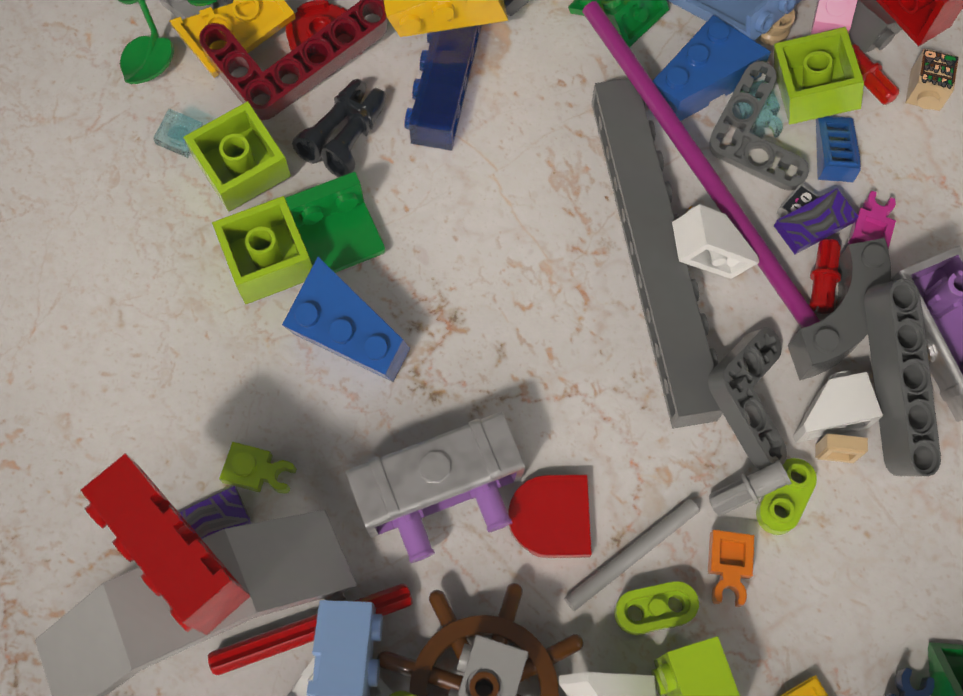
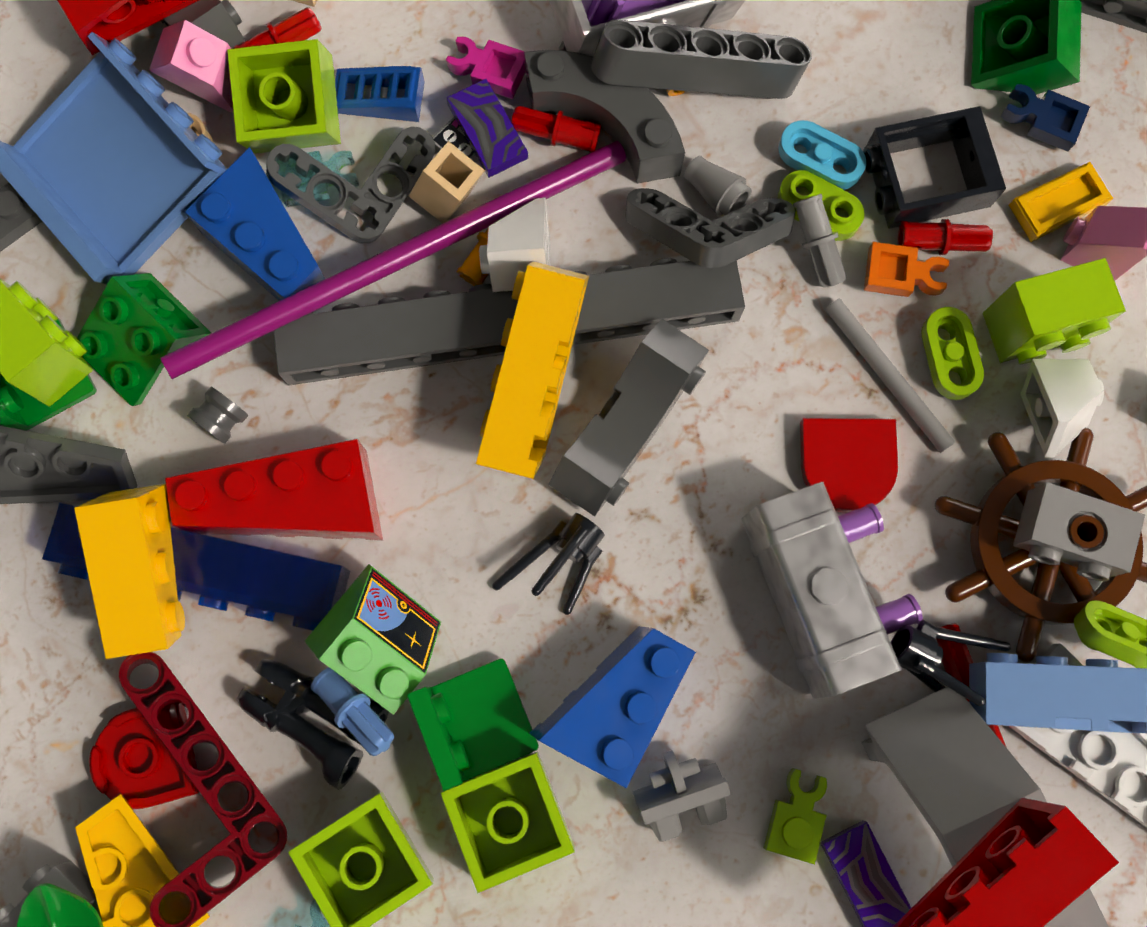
camera: 90 degrees left, 10 degrees up
(283, 375) = (681, 789): none -> light grey hips
(343, 137) = (353, 711): none -> medium blue axle
(381, 553) = (920, 655): none -> black plant
(397, 157) = (377, 639): none -> bright green slope
(476, 297) = (577, 541): none -> black plant
(506, 107) = (284, 495): none -> red wedge
(562, 54) = (217, 415): none -> dark grey wheel
(601, 345) = (642, 399): none -> dark grey brick
(605, 245) = (532, 369): none -> yellow wedge
(762, 190) = (446, 182): none -> tan brick
(768, 607) = (945, 236): none -> red axle
(791, 405) = (719, 187): none -> light grey cone
(832, 497) = (822, 153): none -> medium azure plate
(840, 407) = (723, 133): white slope -> none
(841, 448) = (771, 139): tan tile -> none
(867, 581) = (974, 153): none -> black window

